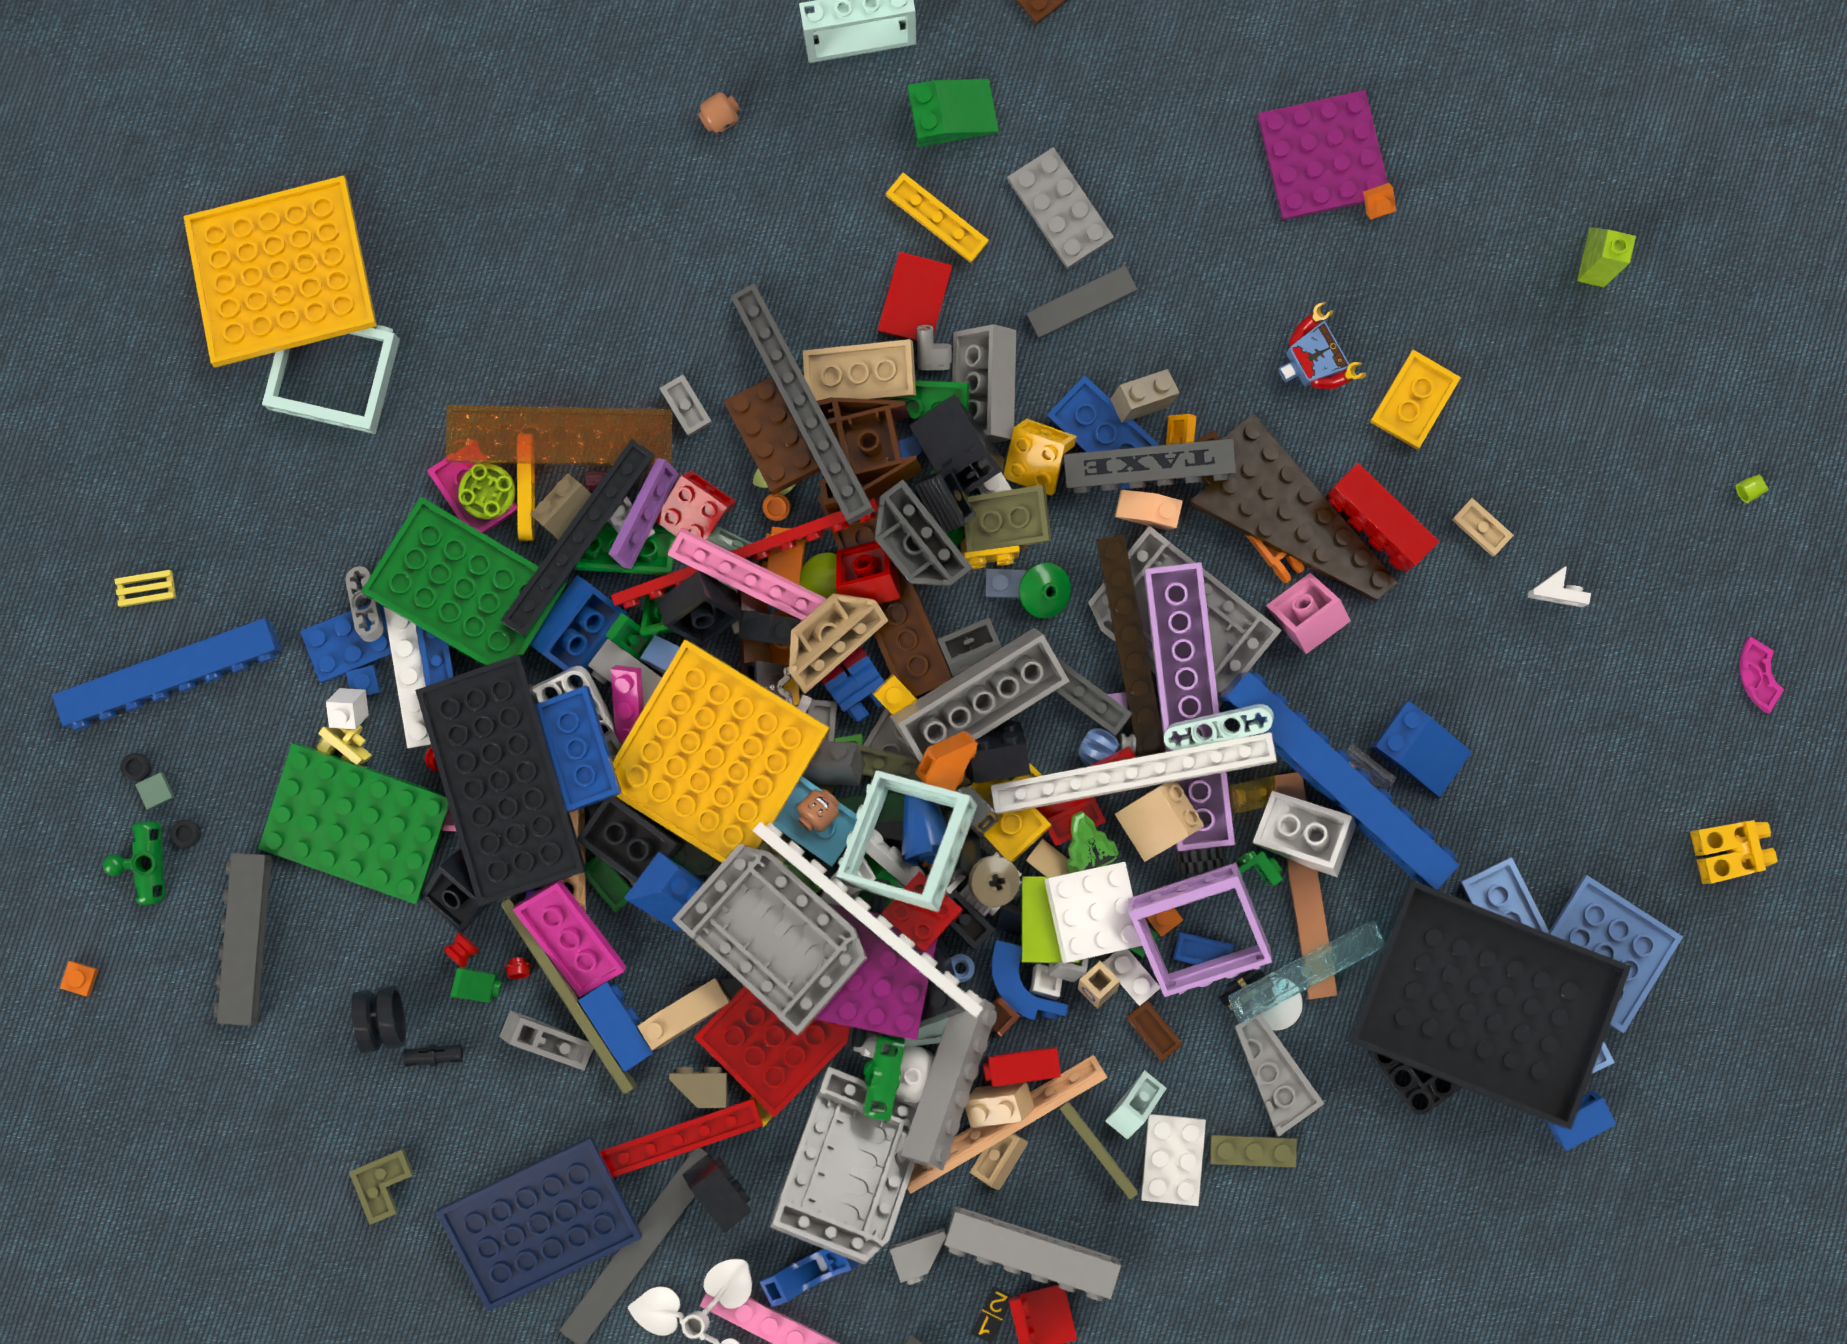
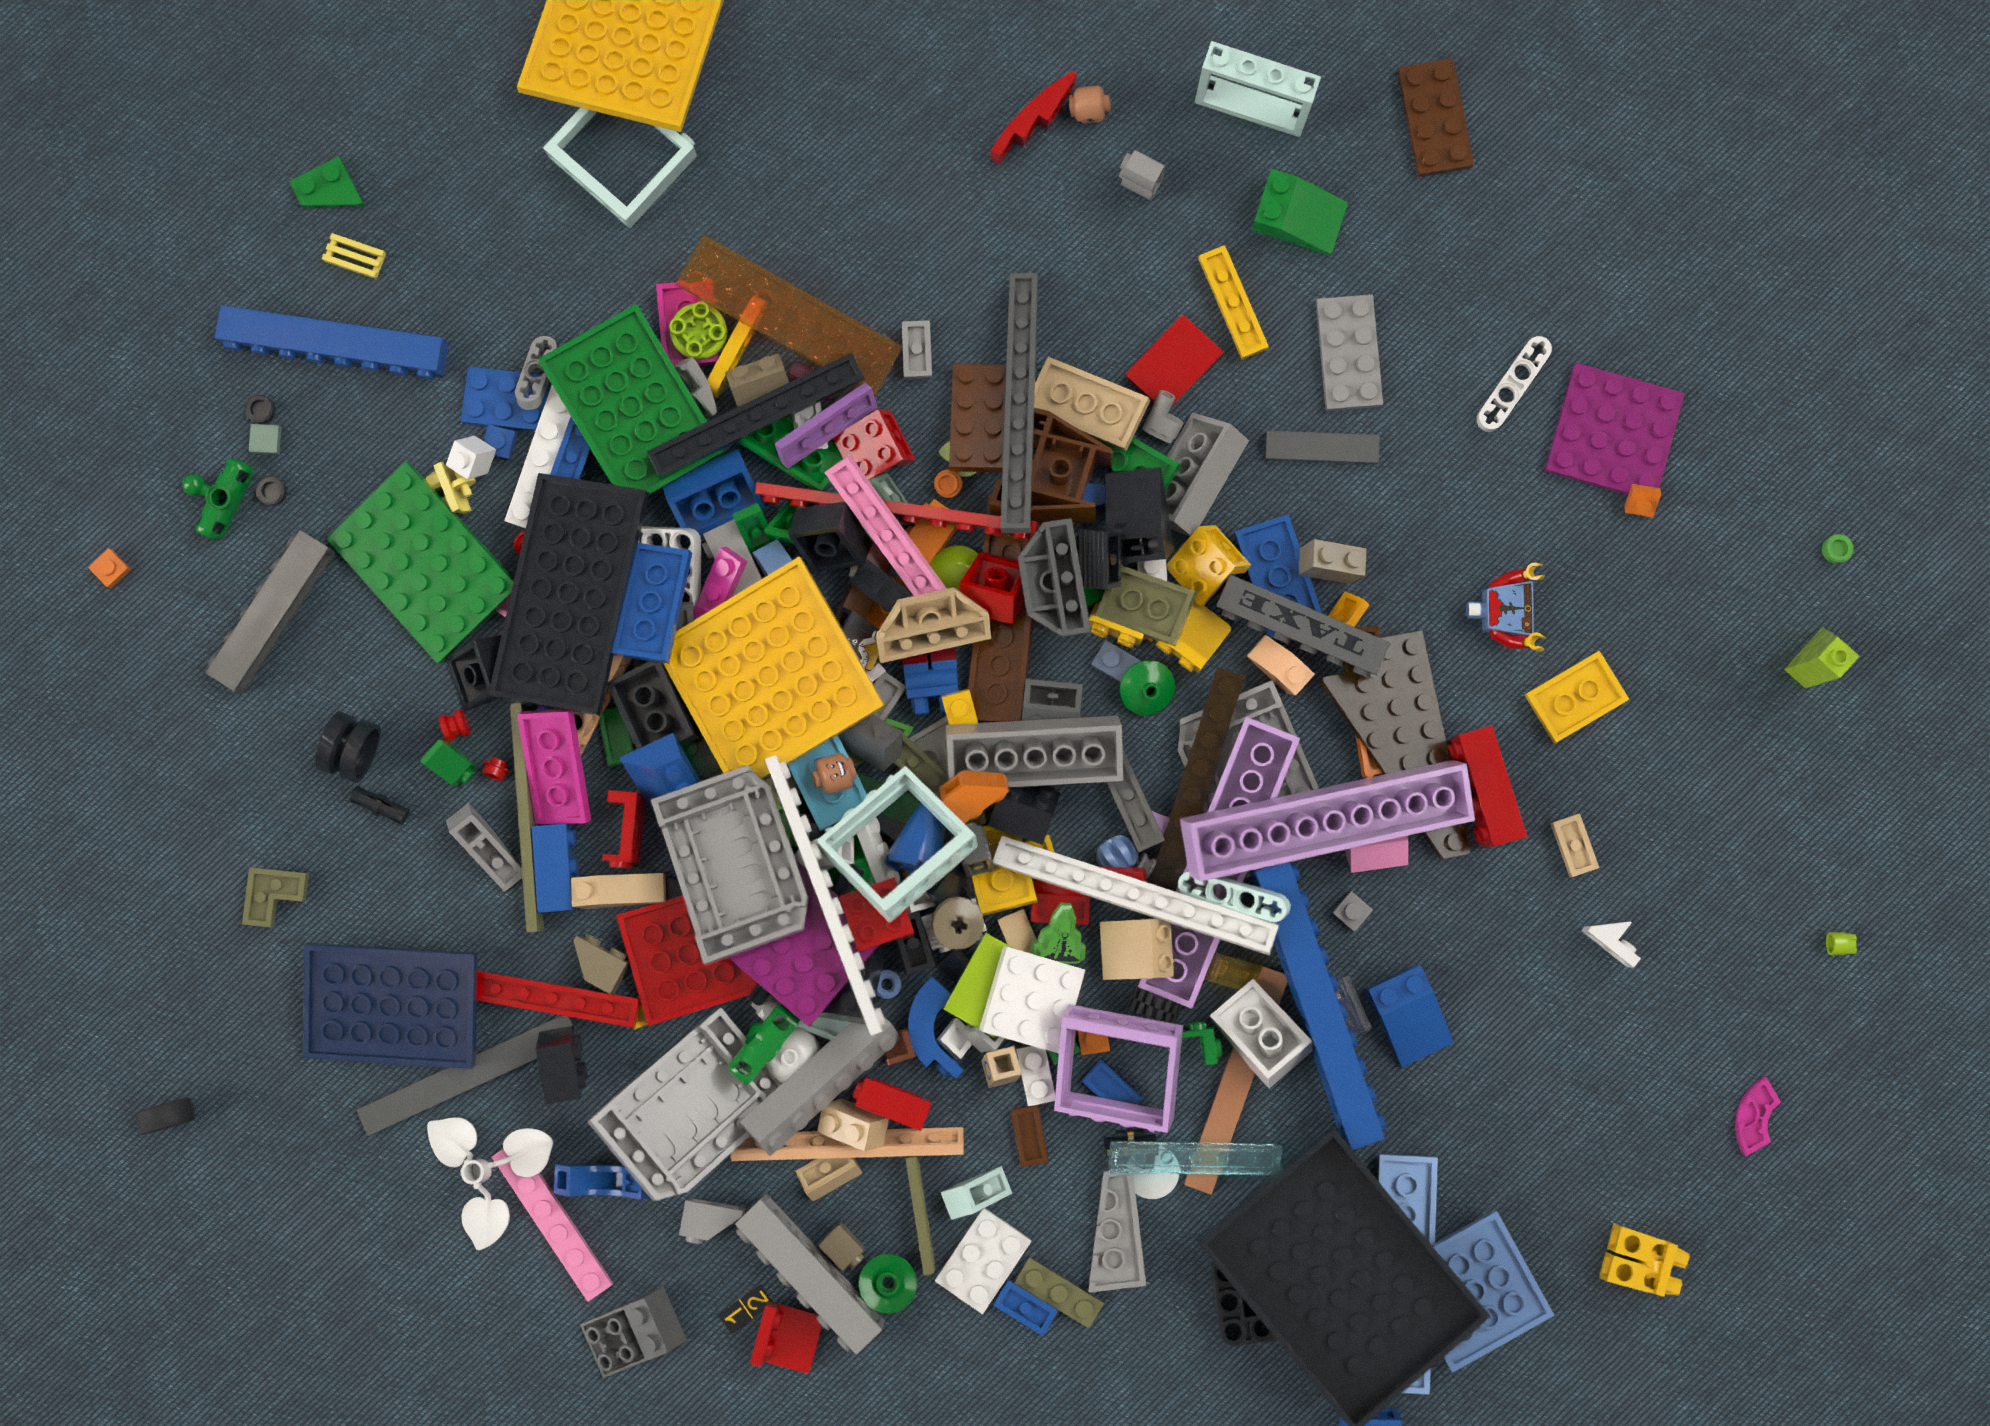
camera: 30 degrees right, 0 degrees up
(87, 540) = (327, 186): none -> green wing
(512, 539) = (697, 385): none -> light grey slope
(666, 953) = (631, 828): none -> red panel
(679, 141) = (1039, 111): none -> red slope
(798, 149) = (1141, 174): none -> light grey brick
(1047, 1215) = (842, 1247): none -> dark tan brick
(1067, 524) = (1198, 639): none -> yellow bracket
(1113, 1235) = (884, 1298): none -> green dish
(1219, 160) = (1514, 384): none -> white beam
(1231, 1179) = (1025, 1307): none -> blue plate
(1262, 620) = (1327, 820): none -> lavender brick
(1324, 687) = (1352, 911): none -> light grey plate
(1566, 153) = (1837, 548): none -> bright green tile

